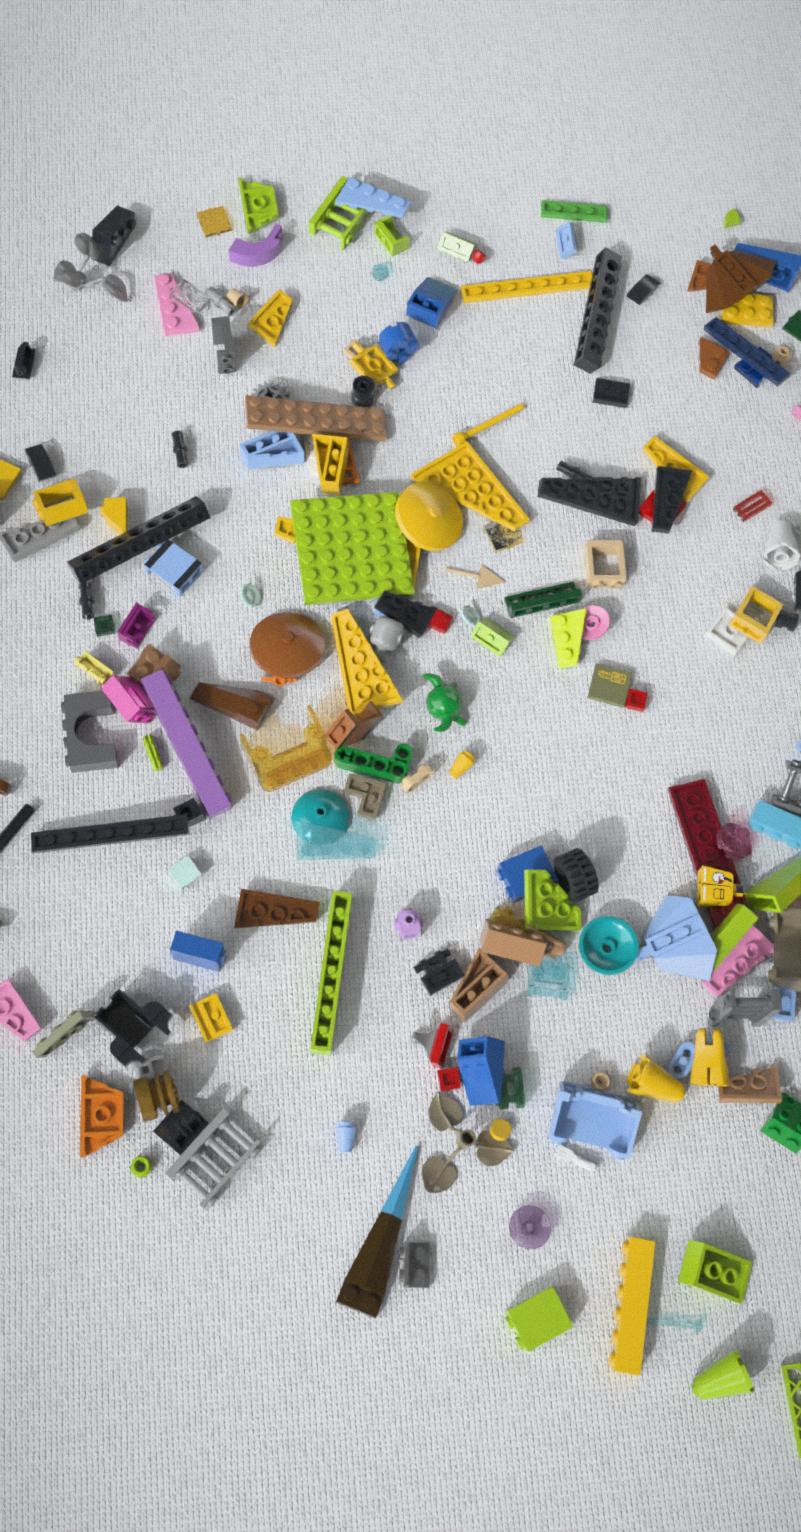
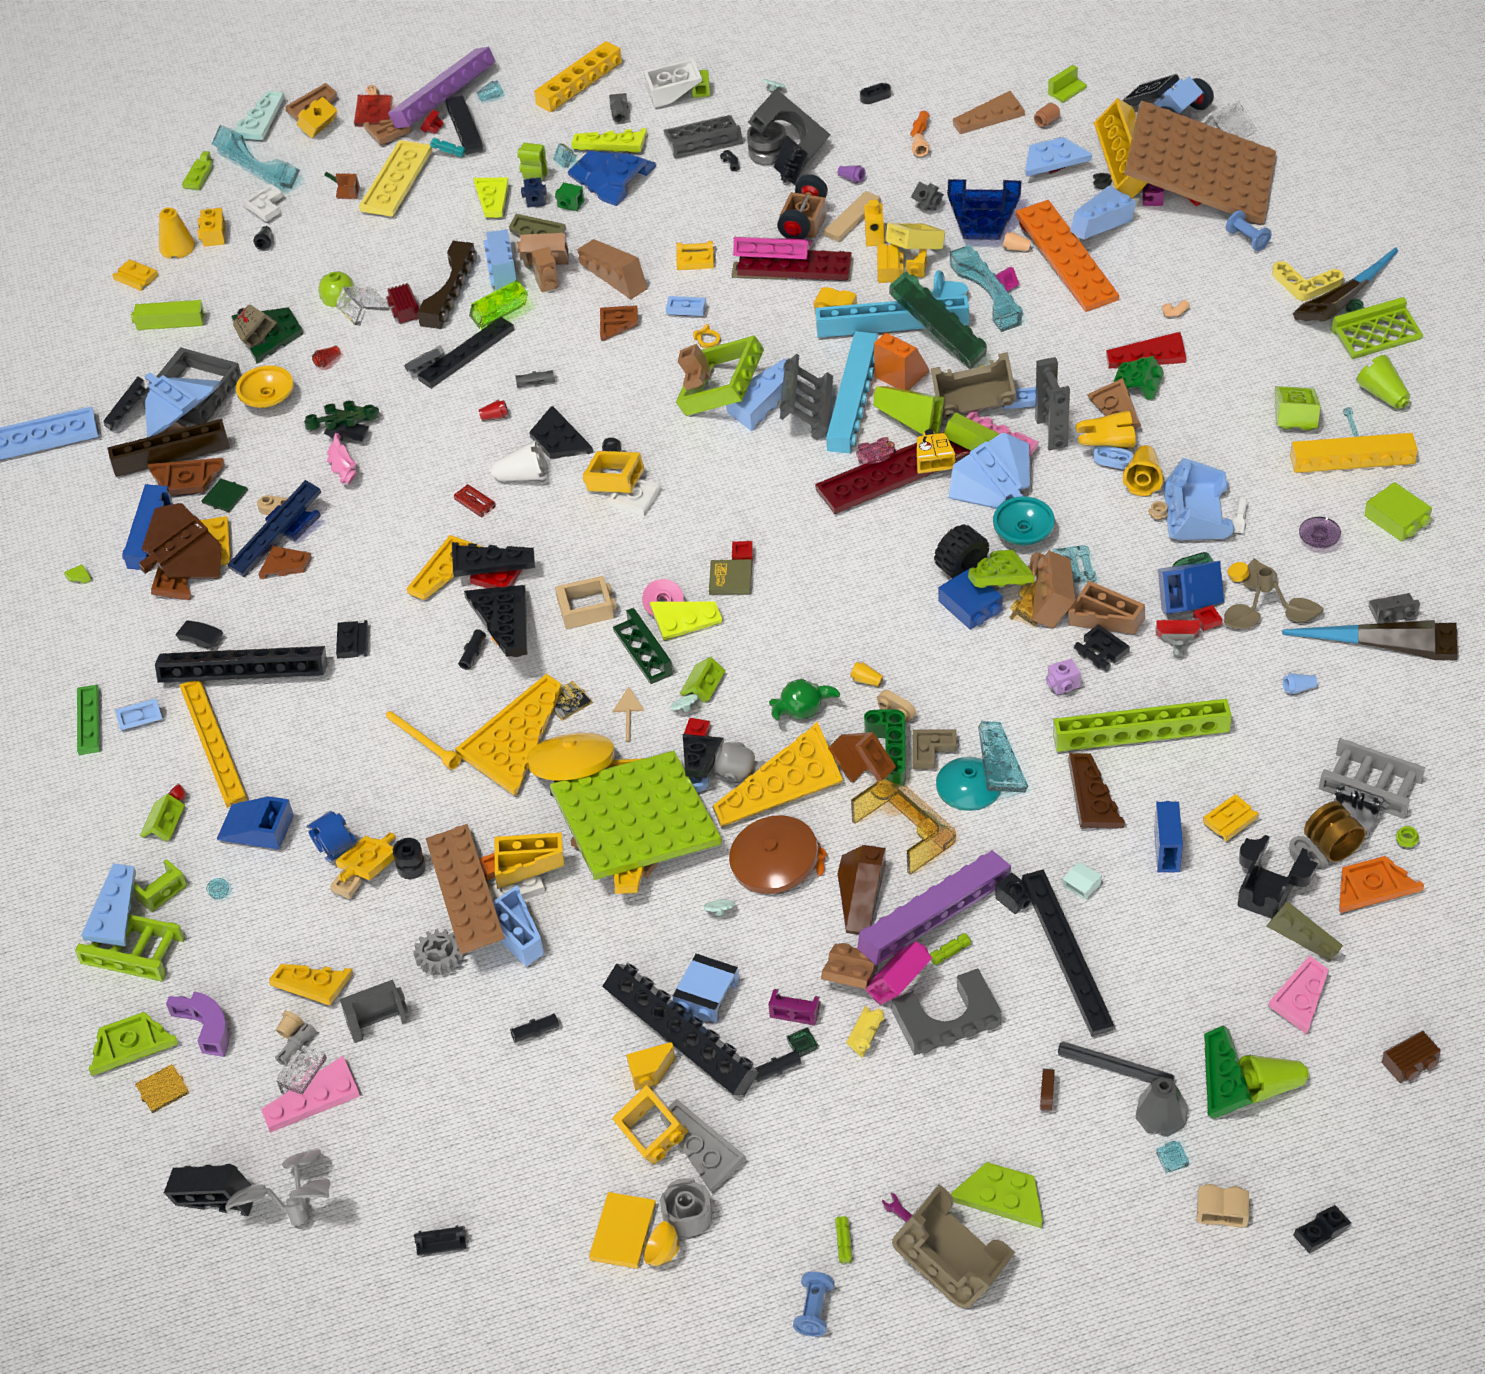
camera: 90 degrees left, 20 degrees down
(40, 462) = (589, 1173): black slope -> none

